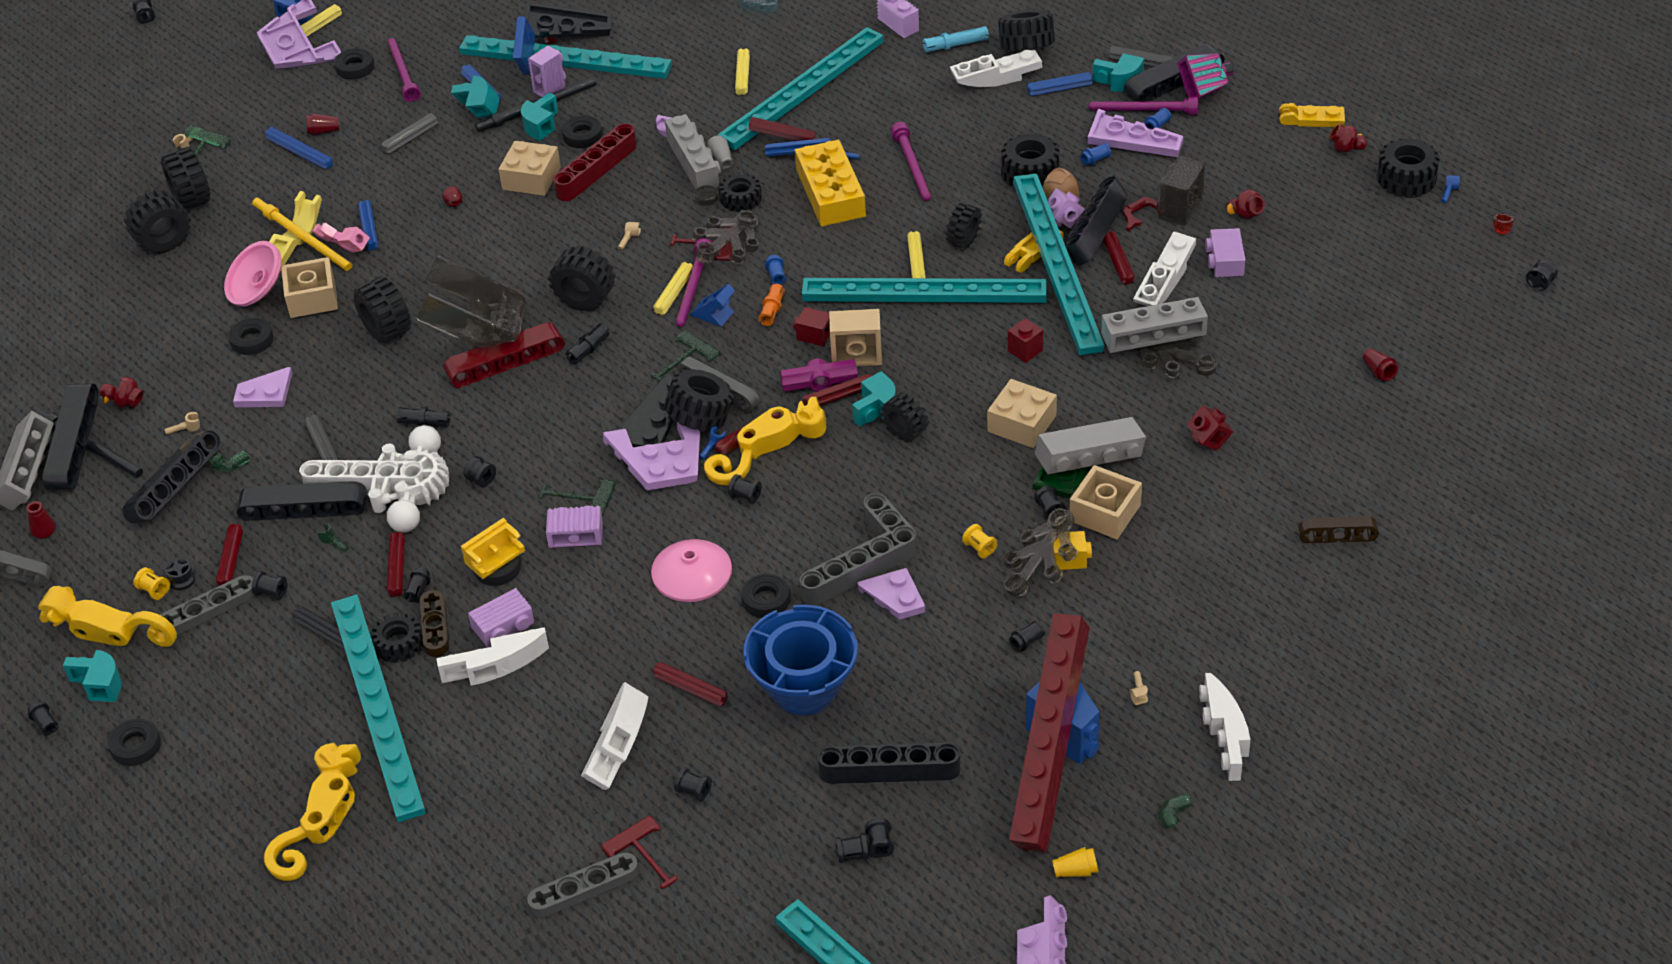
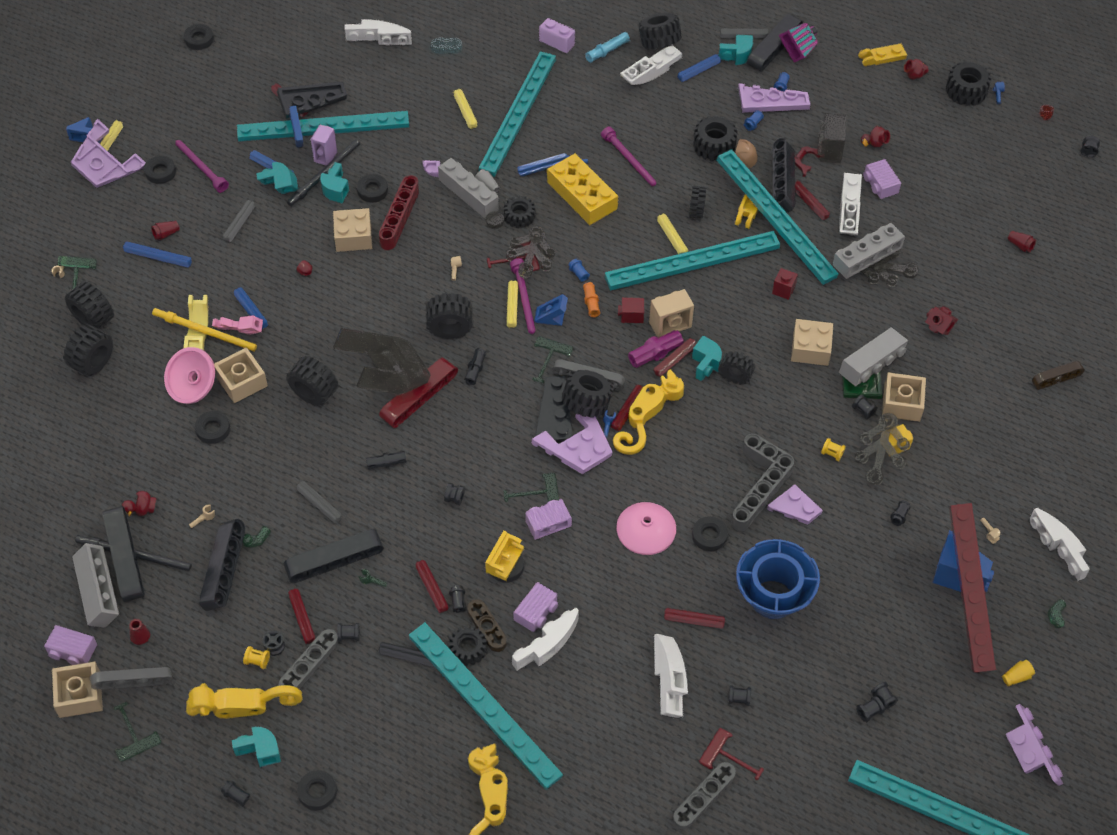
camera: 25 degrees left, 10 degrees up
(265, 390) = (249, 470): lavender wing -> none
(409, 477) = (407, 502): white piece -> none
(744, 489) = (652, 454): black bush -> none
(780, 130) = (524, 153): dark red axle -> none
(889, 763) = (868, 631): black beam -> none
(1065, 208) = (760, 170): lavender brick -> none
(1188, 106) = (797, 66): magenta piece -> none

